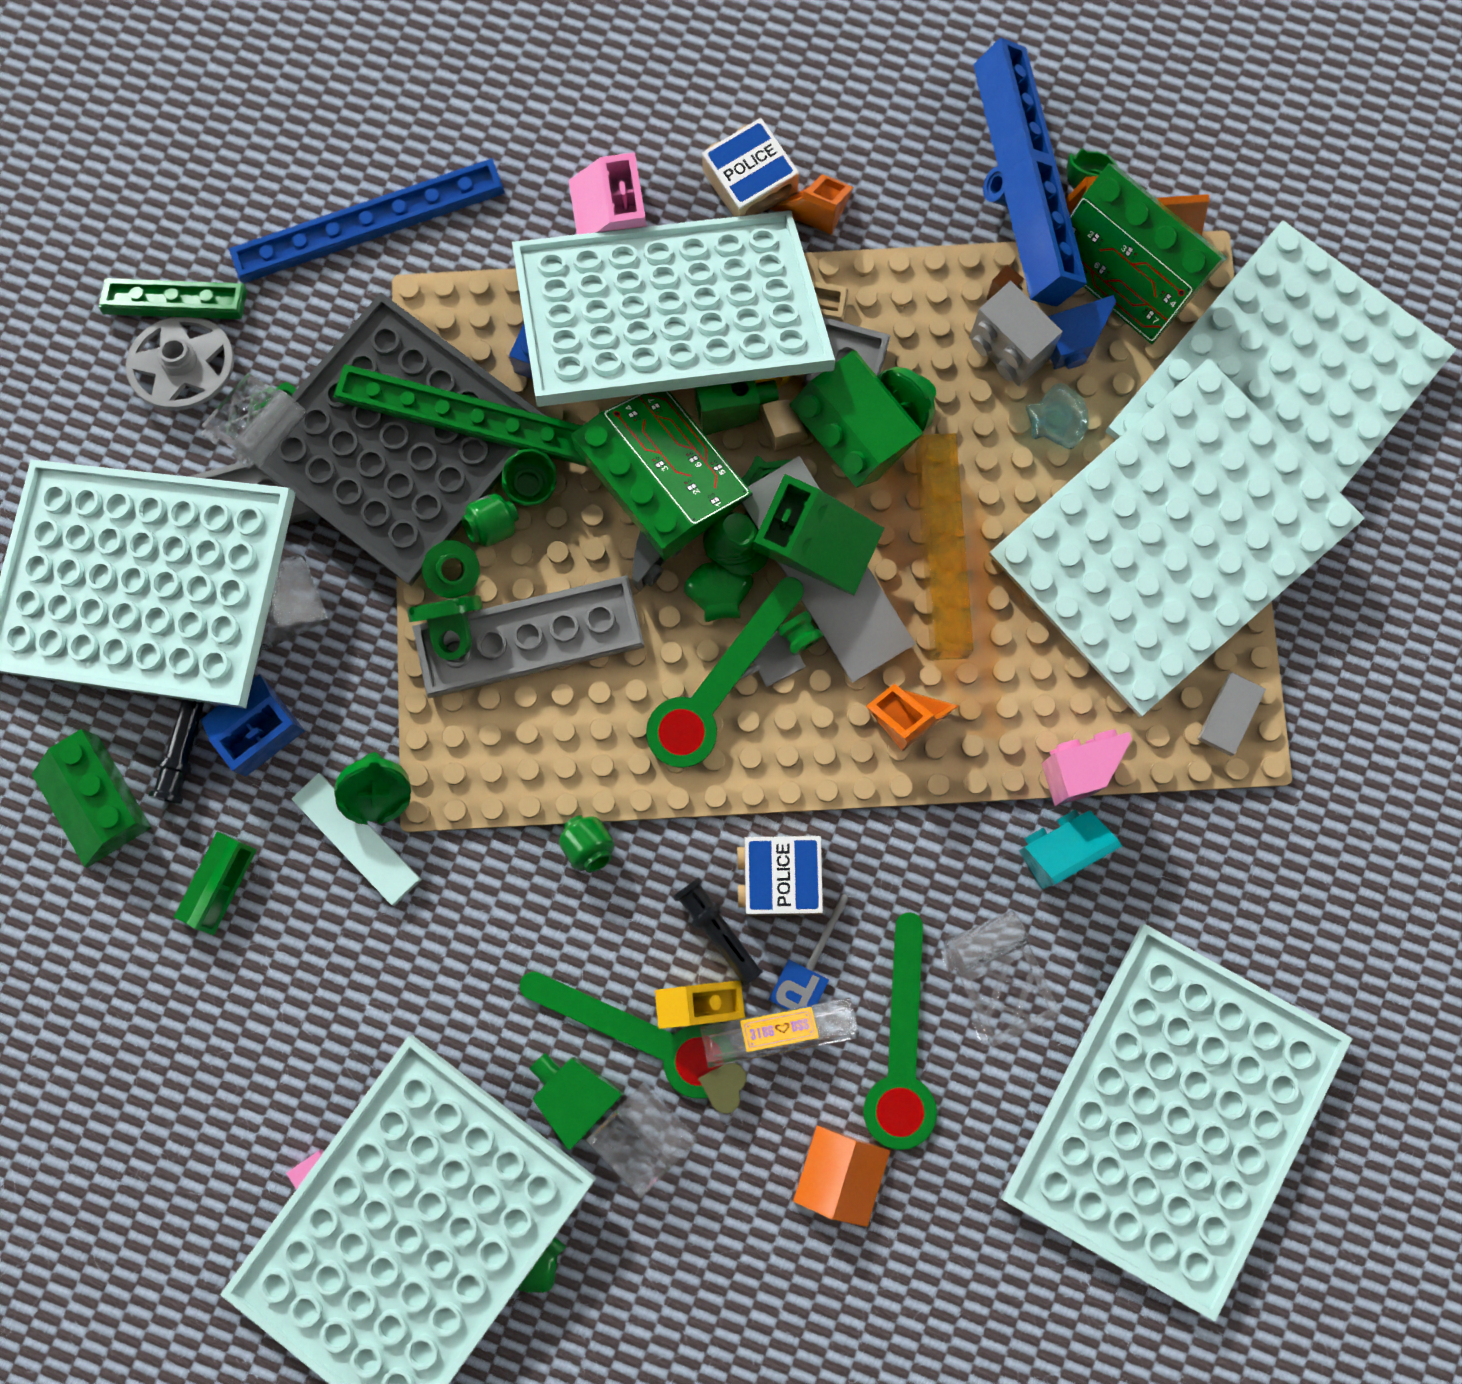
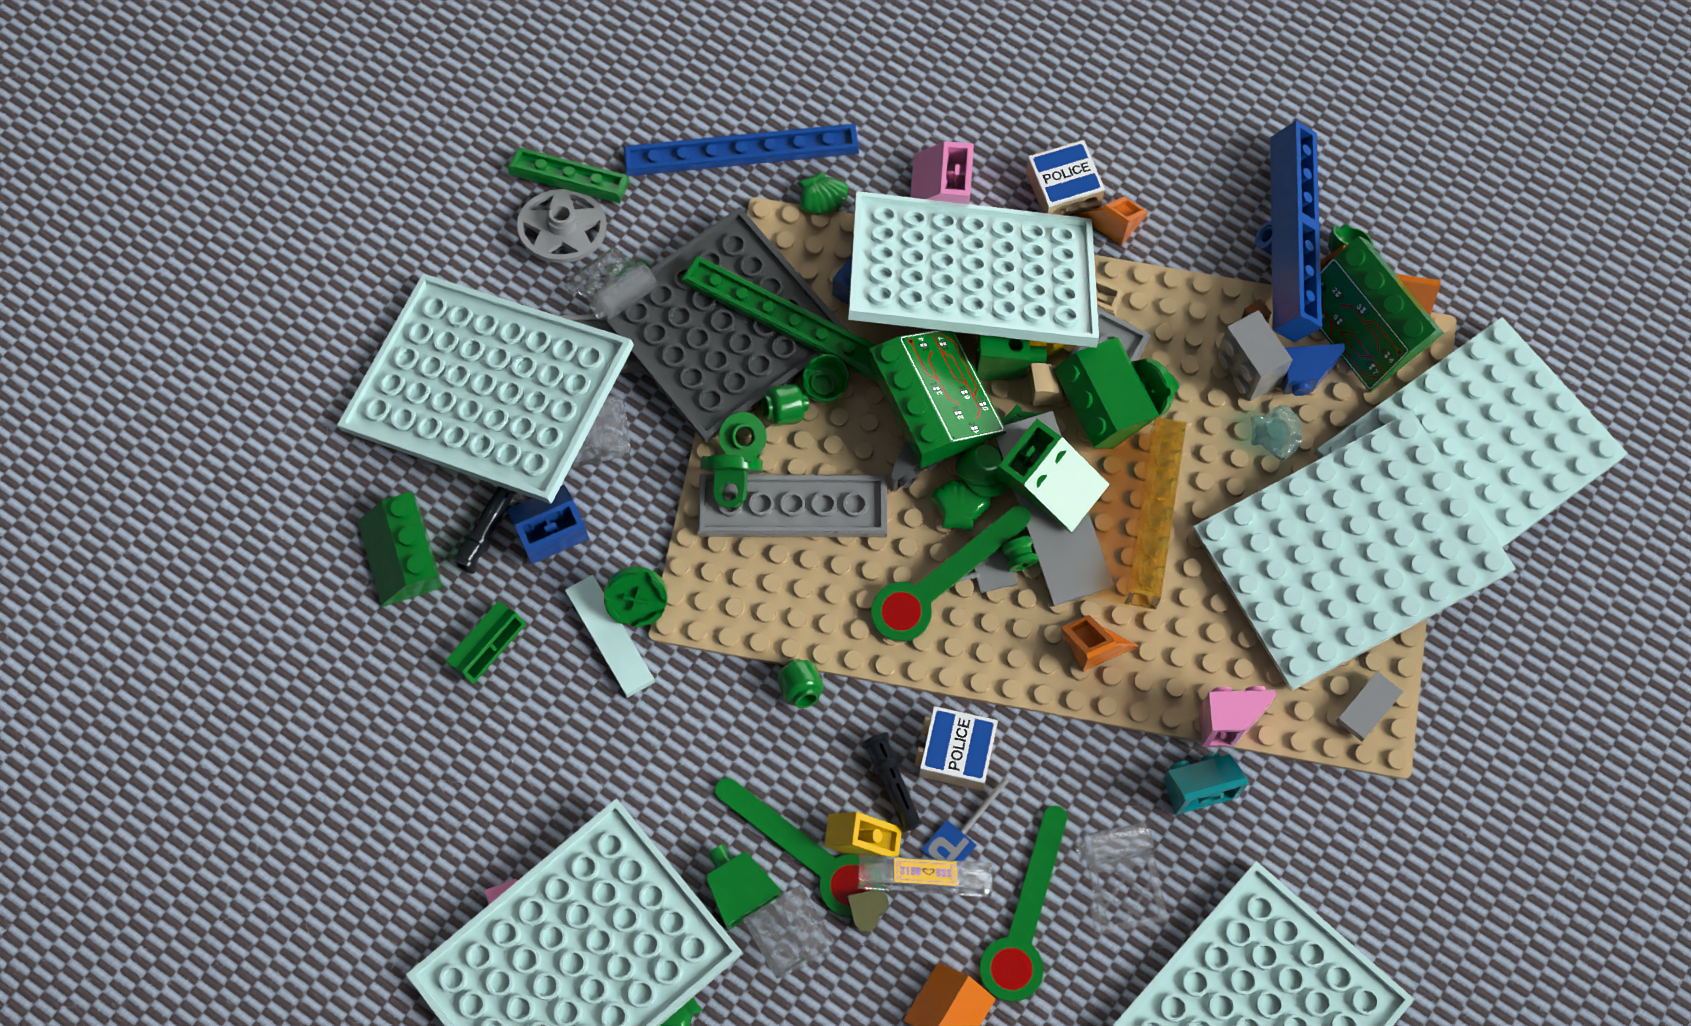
camera: 10 degrees right, 10 degrees down
(474, 253) = (822, 194): none -> green animal

